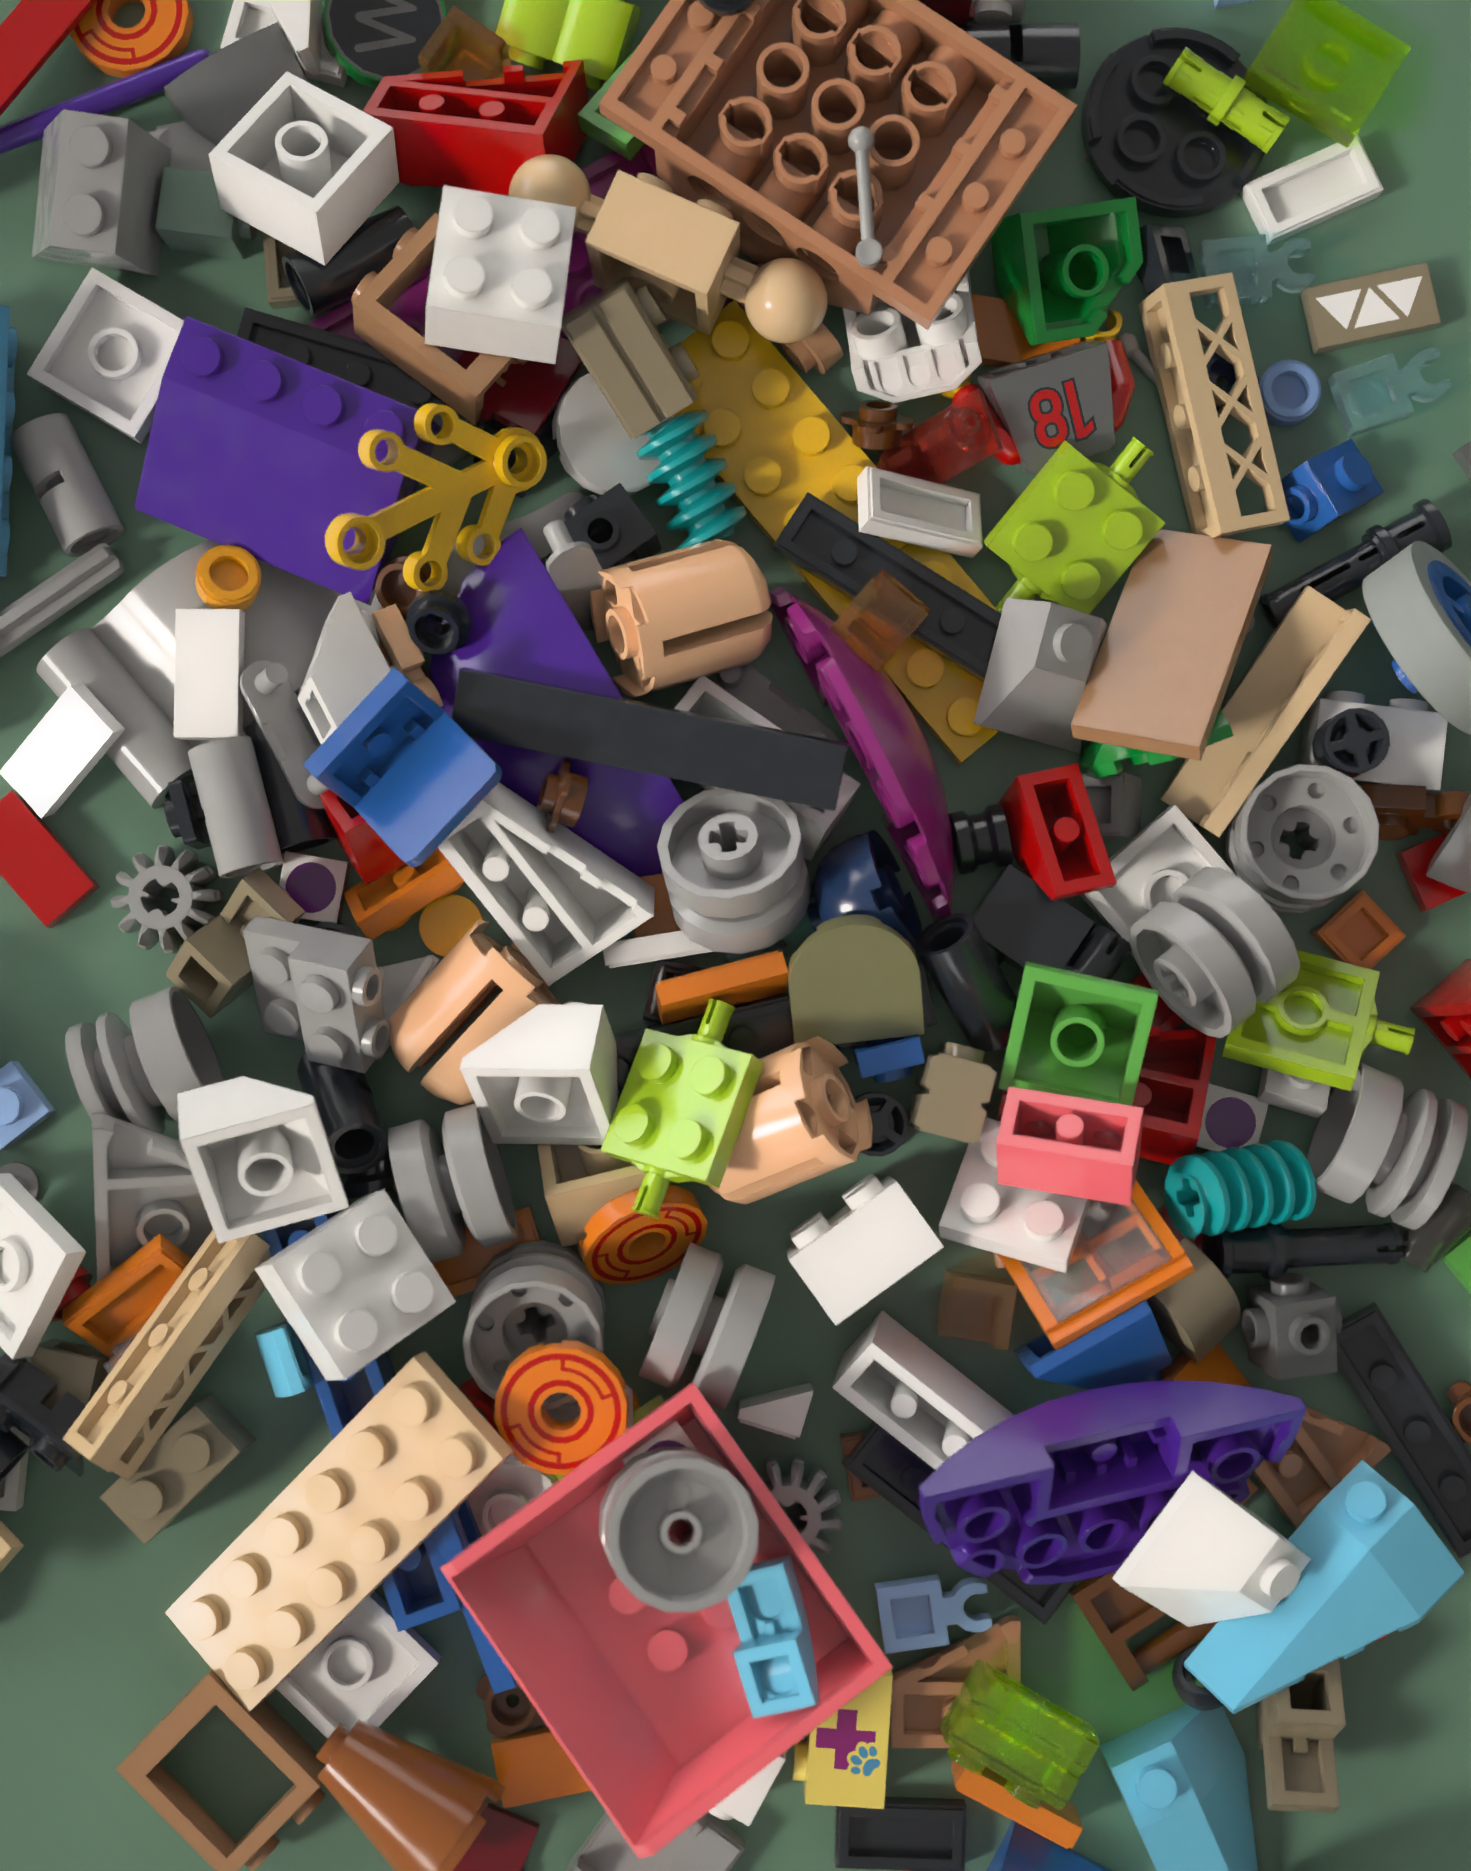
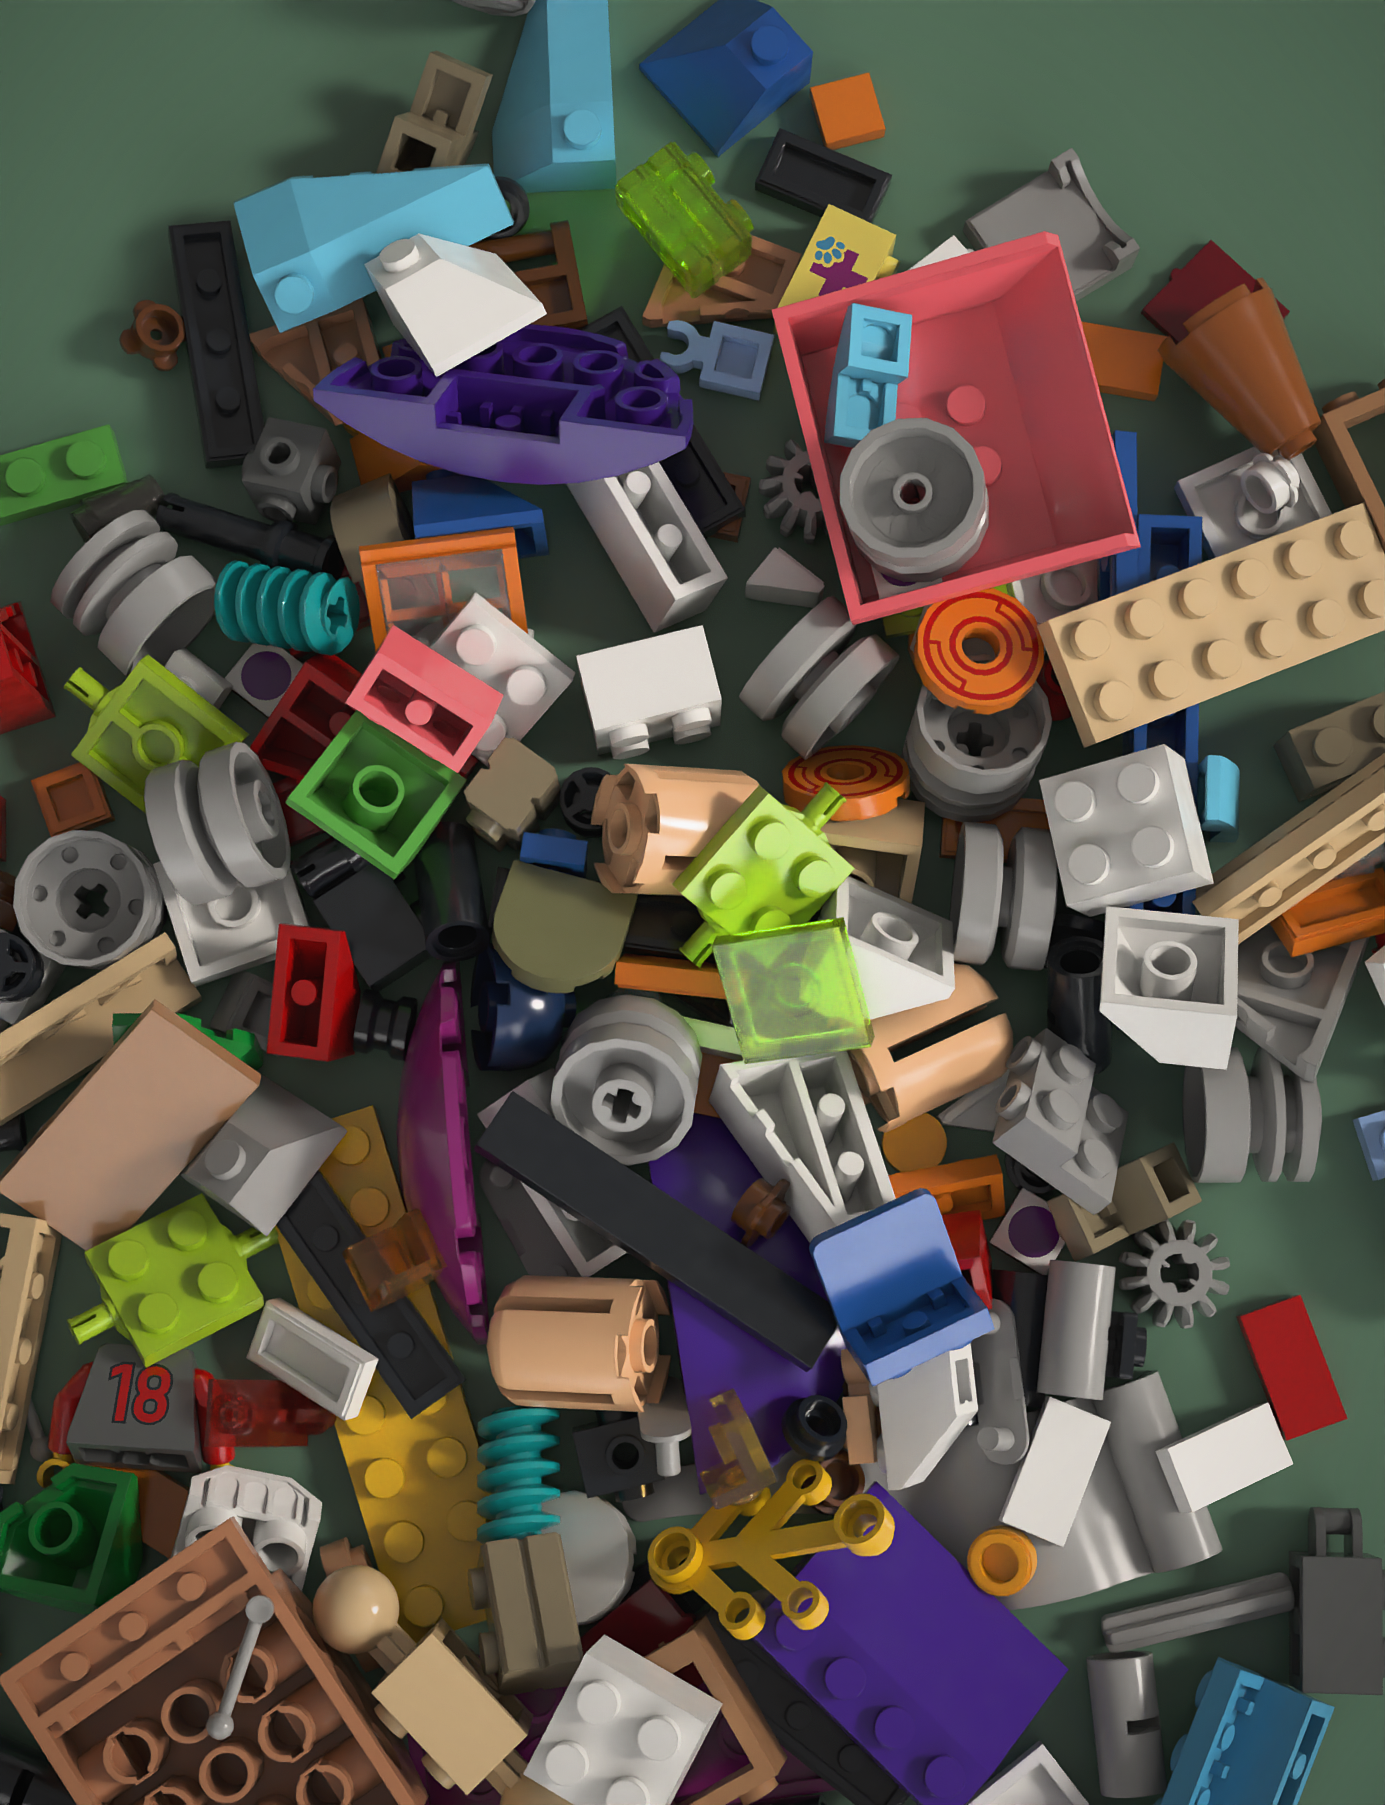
camera: 160 degrees left, 5 degrees down
(345, 1694) = (1270, 483): none -> white plate
(490, 562) = (744, 1464): none -> clear yellow bracket
(504, 1717) = (1137, 413): reddish brown plate -> none
(609, 1005) = (793, 991): none -> clear neon green tile
(877, 425) = (316, 1463): reddish brown plate -> none
(977, 1308) = (566, 602): clear orange panel -> none
(988, 1789) = (690, 139): orange tile -> none

